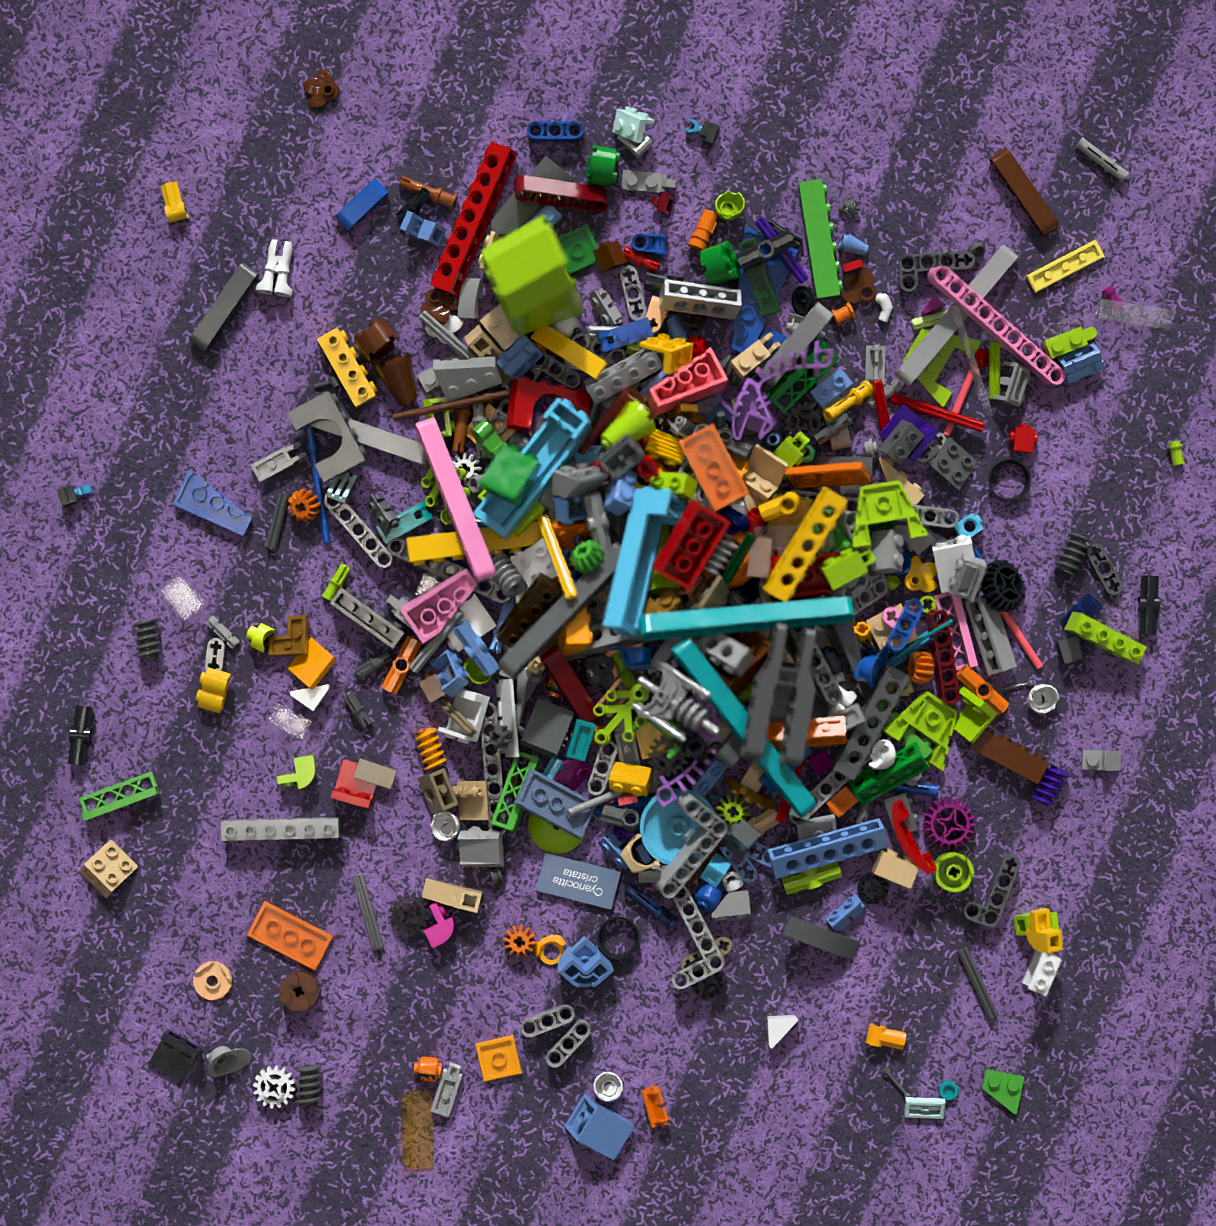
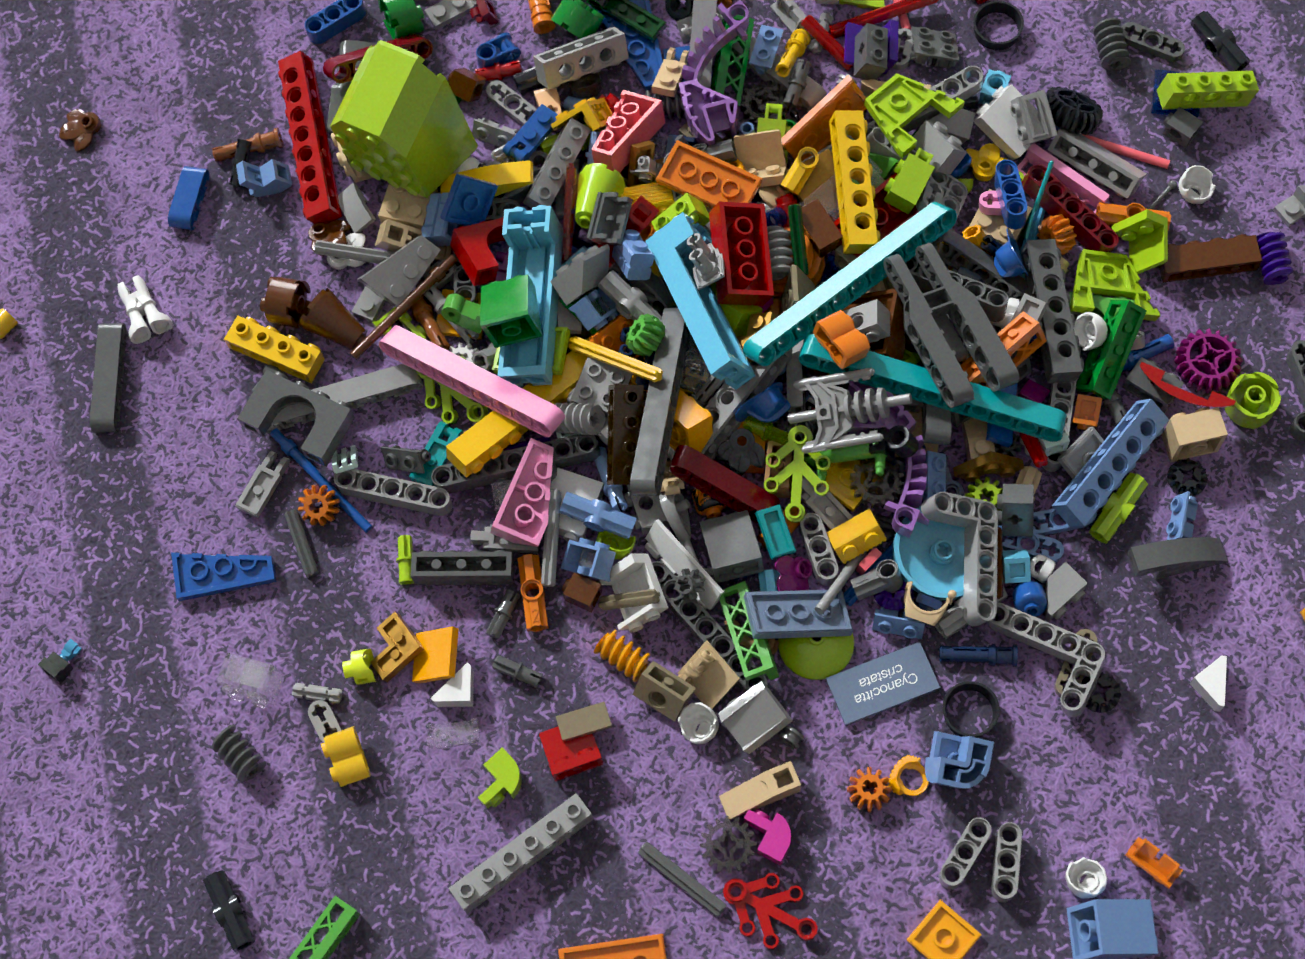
camera: 25 degrees left, 20 degrees down
(406, 965) = (766, 907): none -> red plant
(543, 364) = (468, 200): none -> blue tile
(659, 540) = (707, 262): none -> light grey connector
(704, 660) = (841, 339): none -> orange brick

